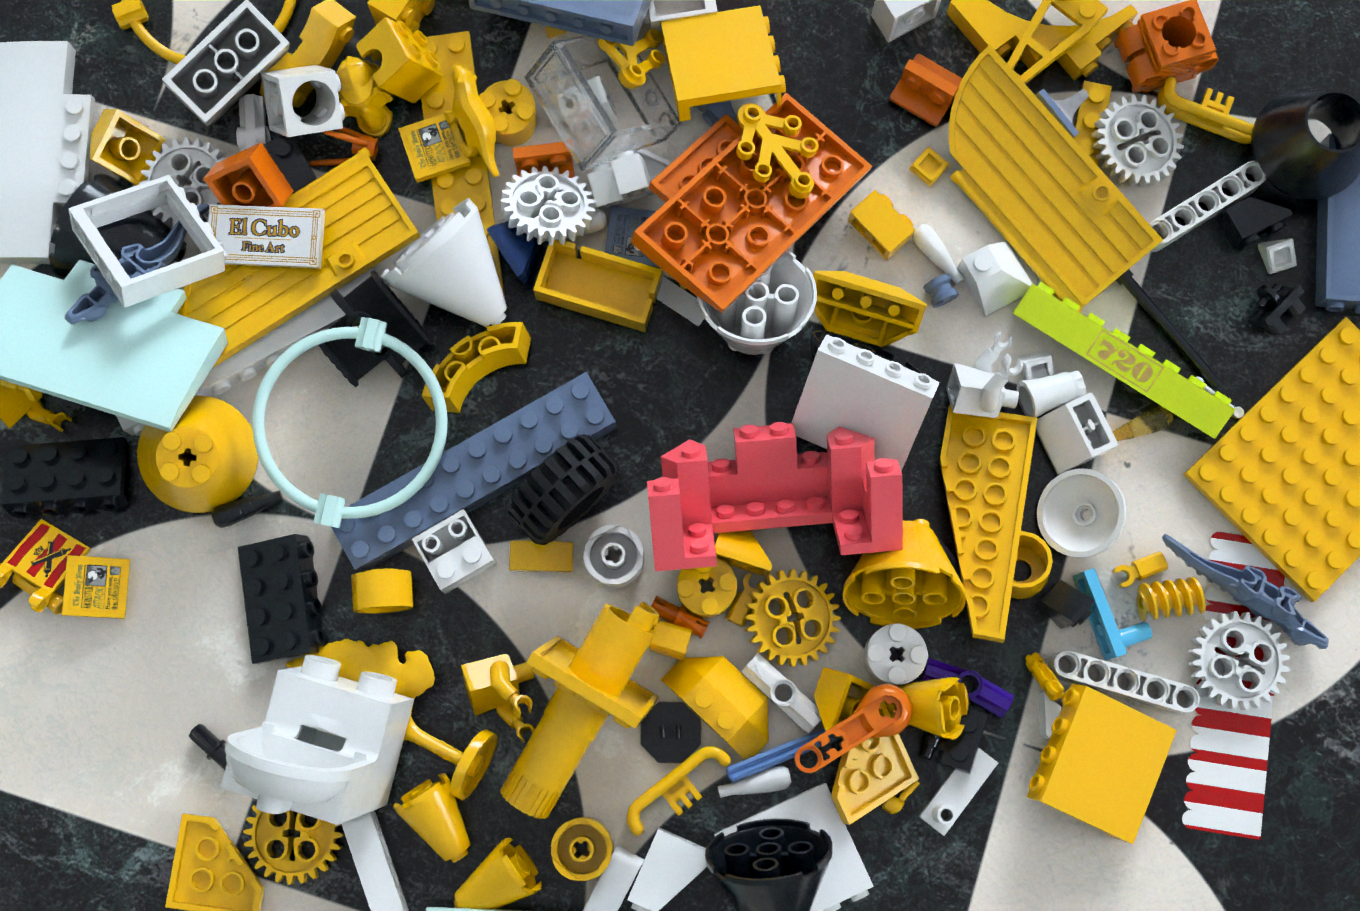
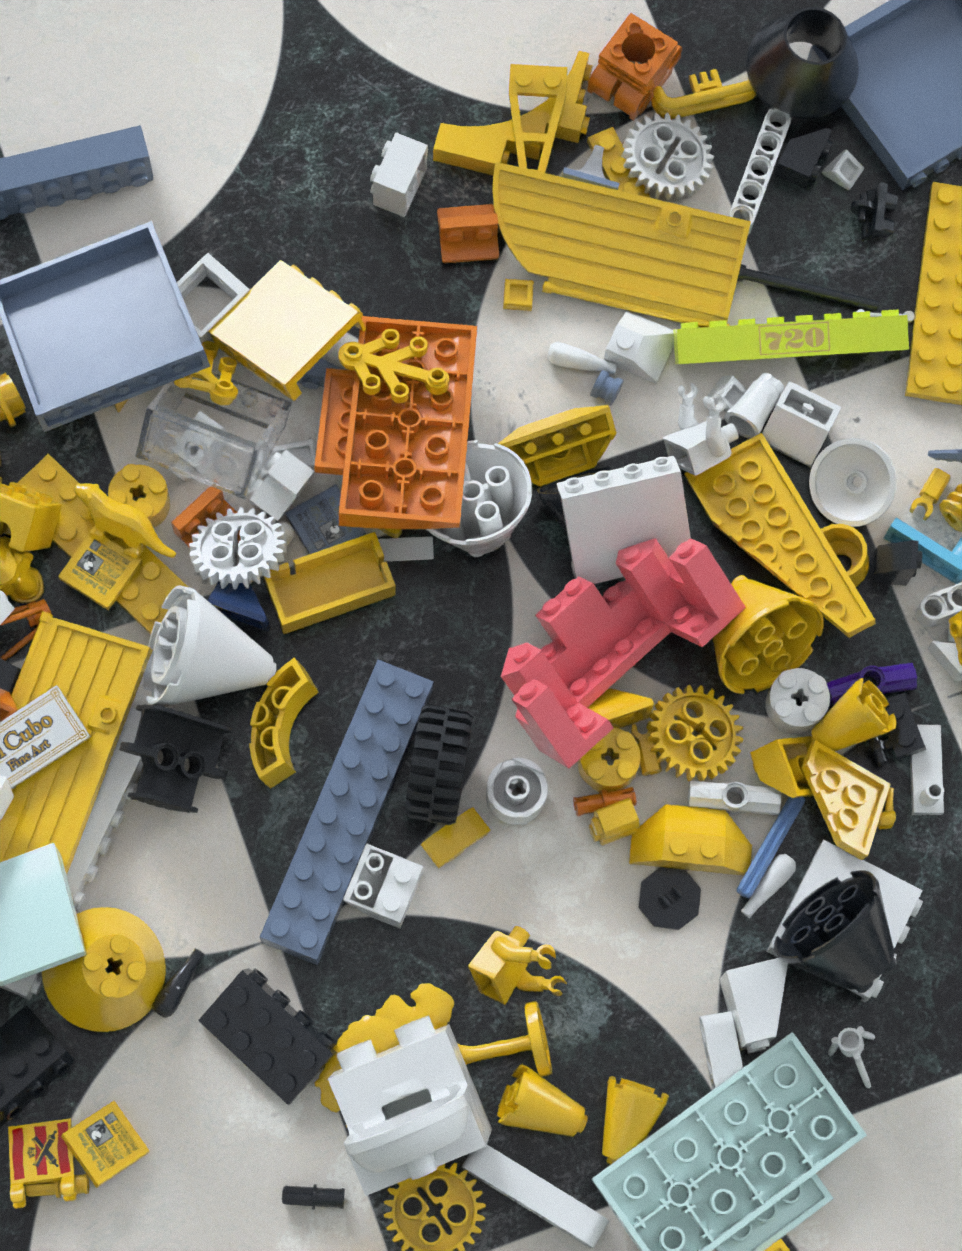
camera: 45 degrees left, 5 degrees down
(369, 336) = (185, 758): light aqua piece -> none
(382, 591) = (351, 961): yellow piece -> none
(584, 866) = (687, 1026): yellow brick -> none
(589, 688) = (587, 909): yellow piece -> none
(674, 786) = (708, 935): yellow piece -> none
(863, 724) = (817, 771): orange beam -> none
(881, 224) = (518, 368): yellow brick -> none
(1044, 676) = (923, 630): yellow axle -> none
(1145, 424) = (847, 376): clear yellow piece -> none

